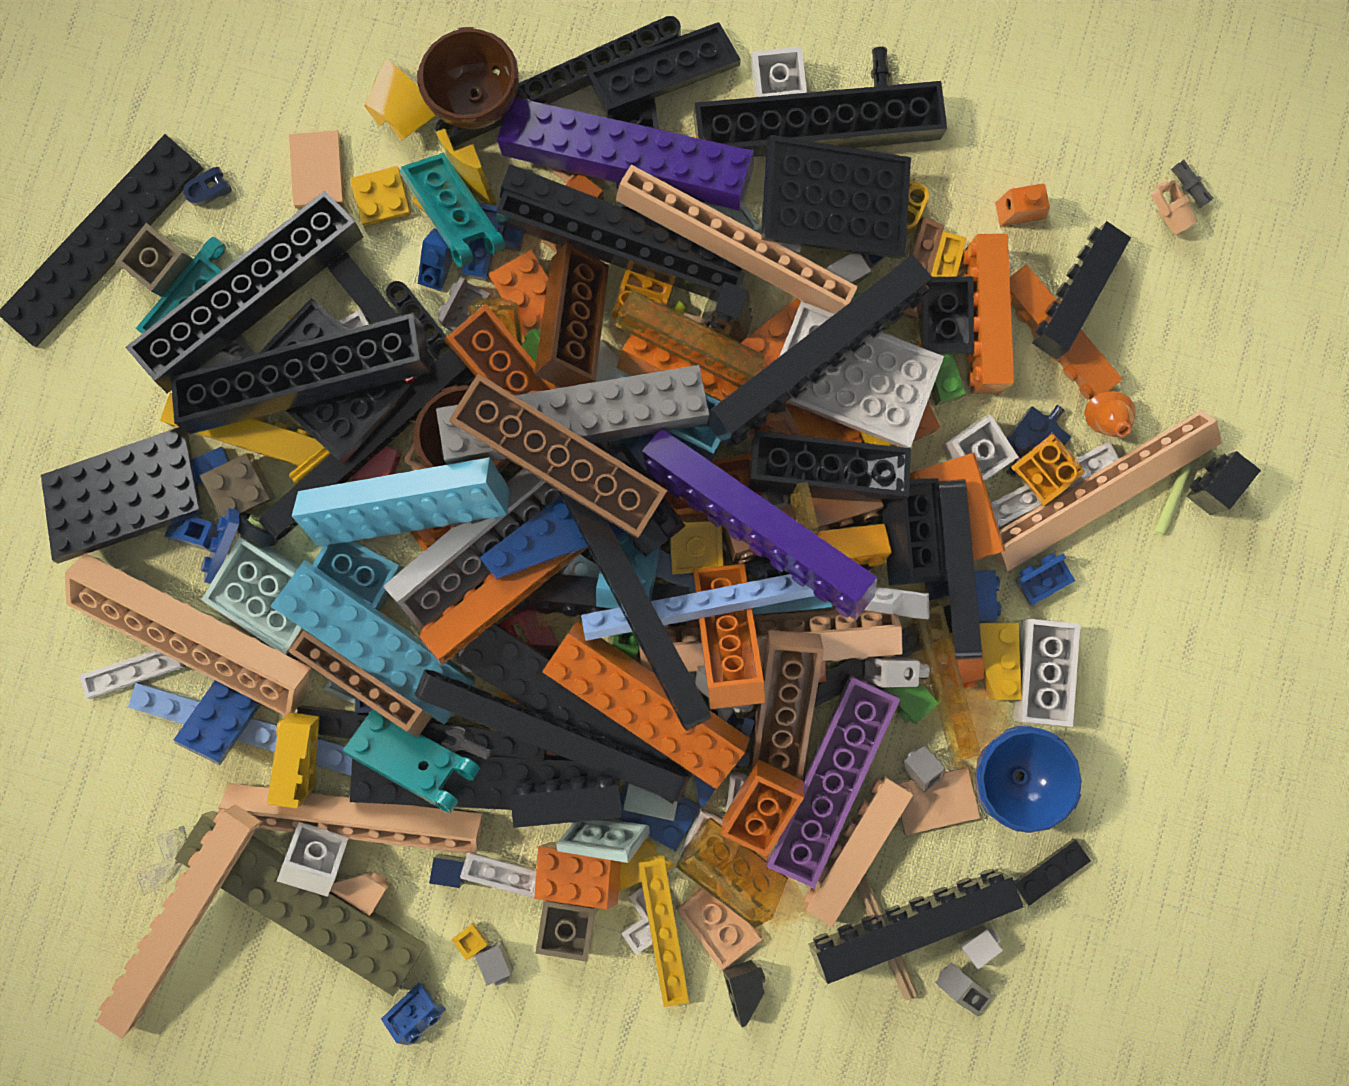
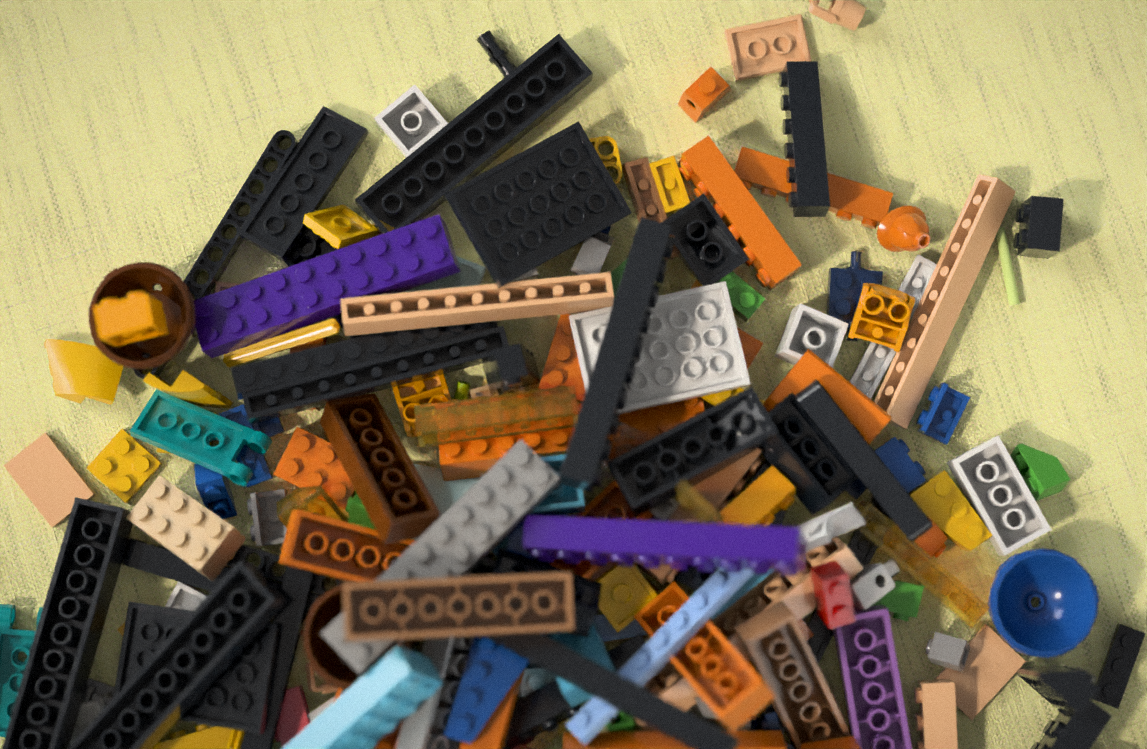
camera: 35 degrees left, 0 degrees up
(392, 269) = (186, 528): none -> tan brick
(455, 65) = (130, 319): none -> light orange brick
(572, 179) = (282, 342): none -> yellow axle
(667, 114) = (340, 226): none -> yellow plate
(864, 657) = (832, 594): none -> red brick
(998, 856) = (1061, 686): none -> black slope
(1094, 201) = (766, 46): none -> light nougat tile
(1094, 676) = (1039, 471): none -> bright green slope

